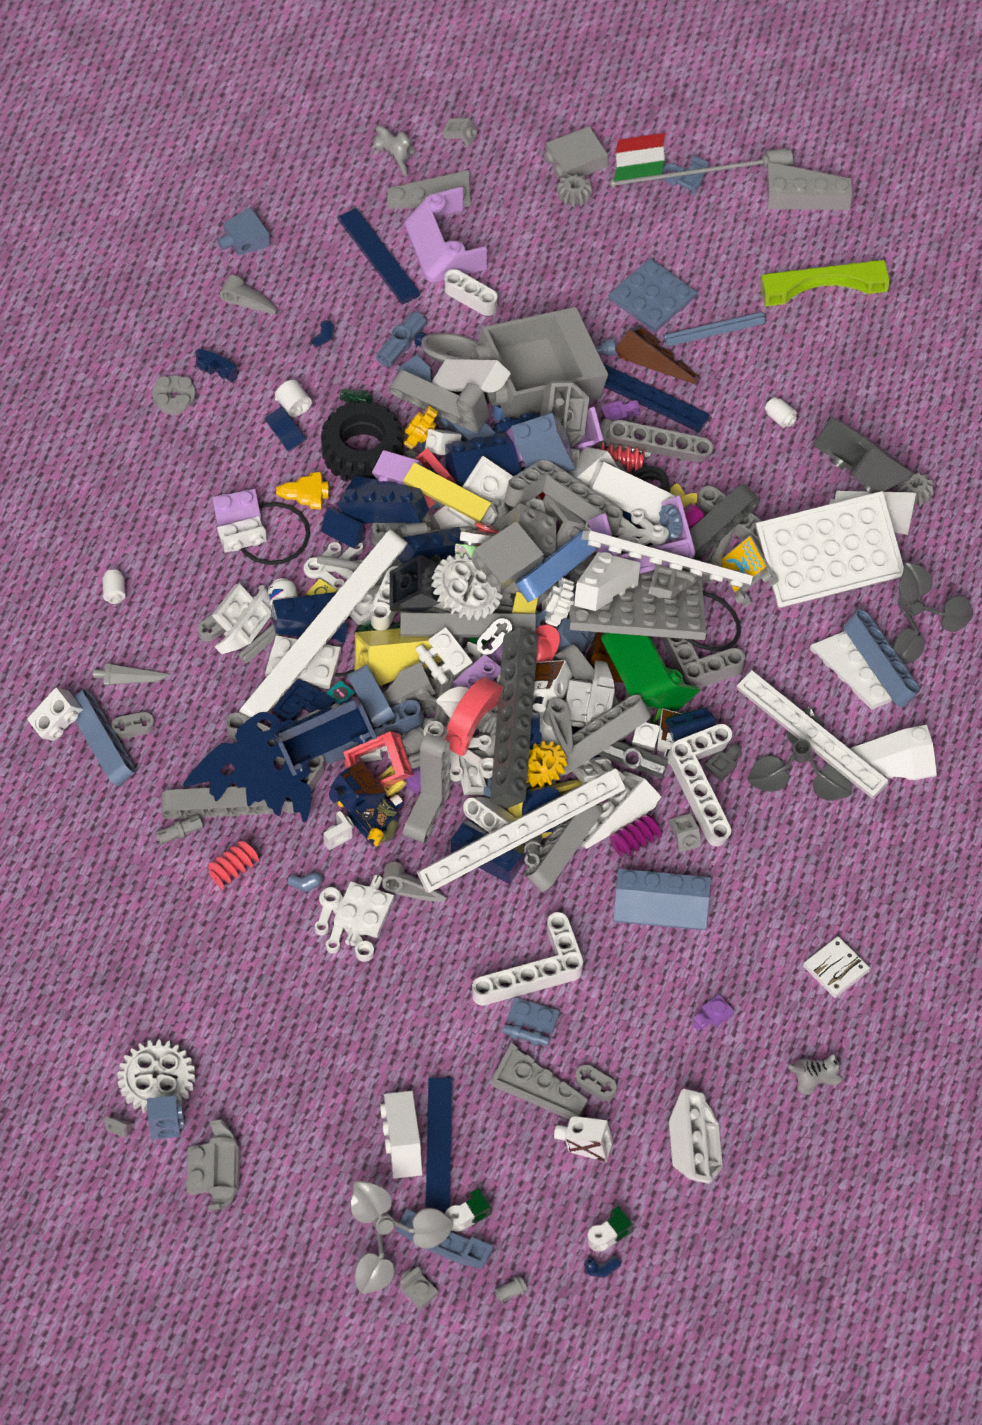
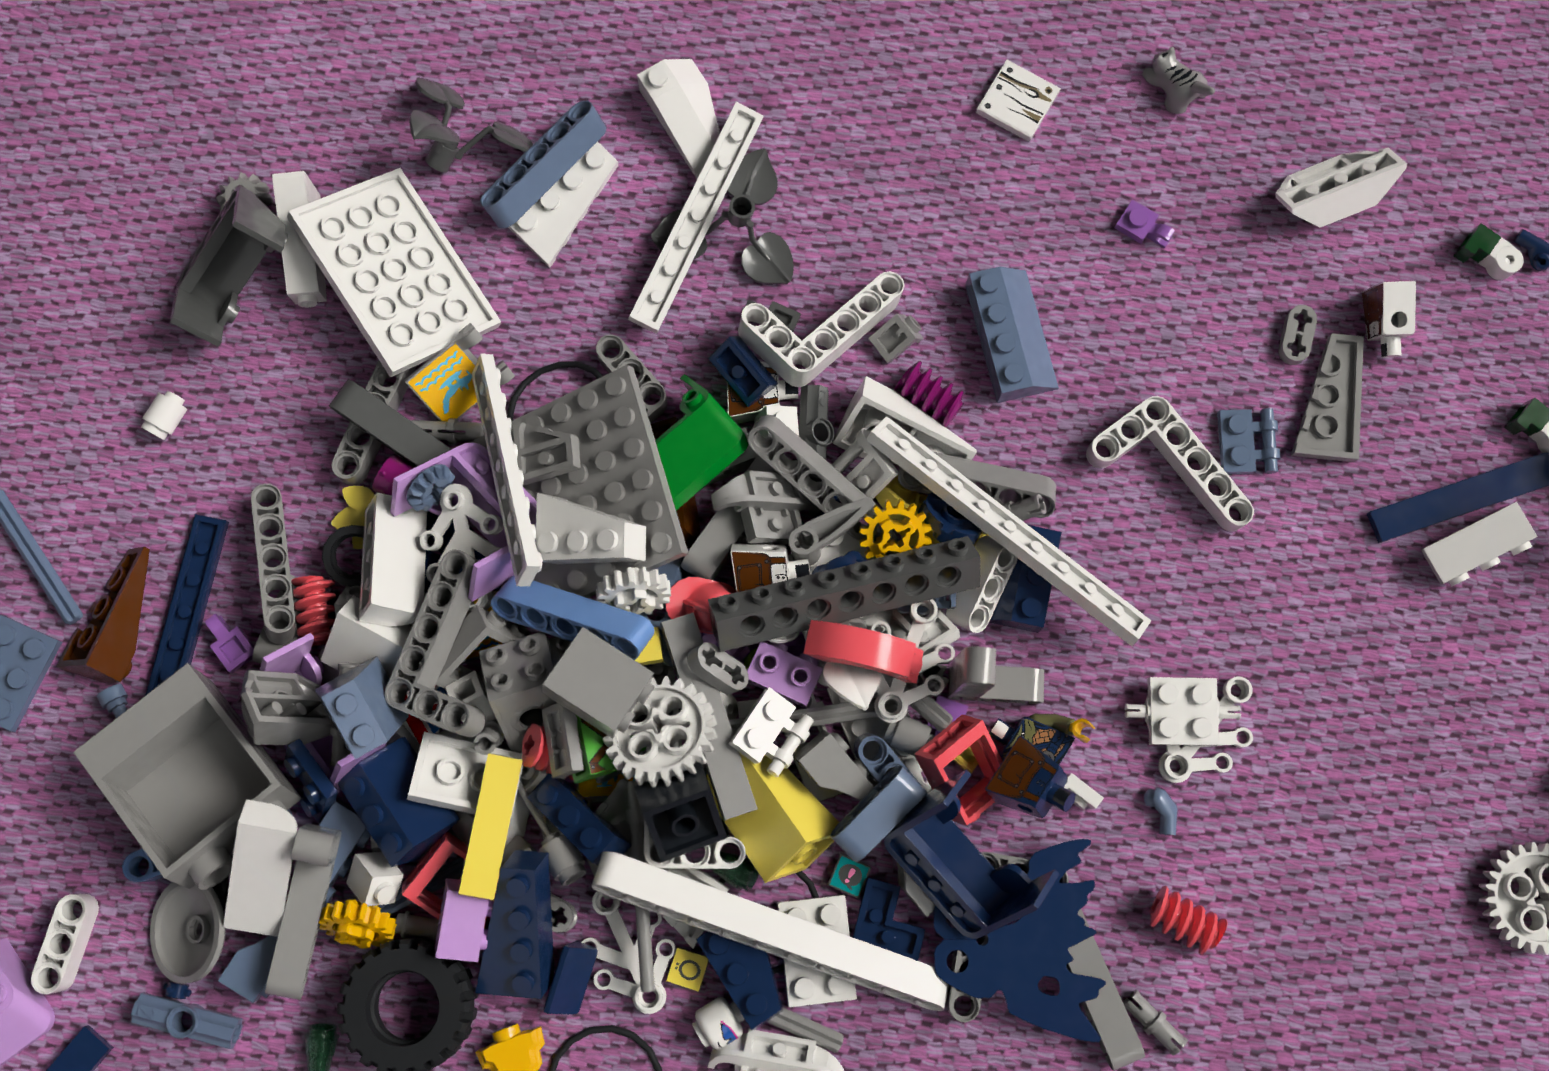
camera: 110 degrees left, 20 degrees up
(406, 885) = (1114, 672): light grey piece -> none

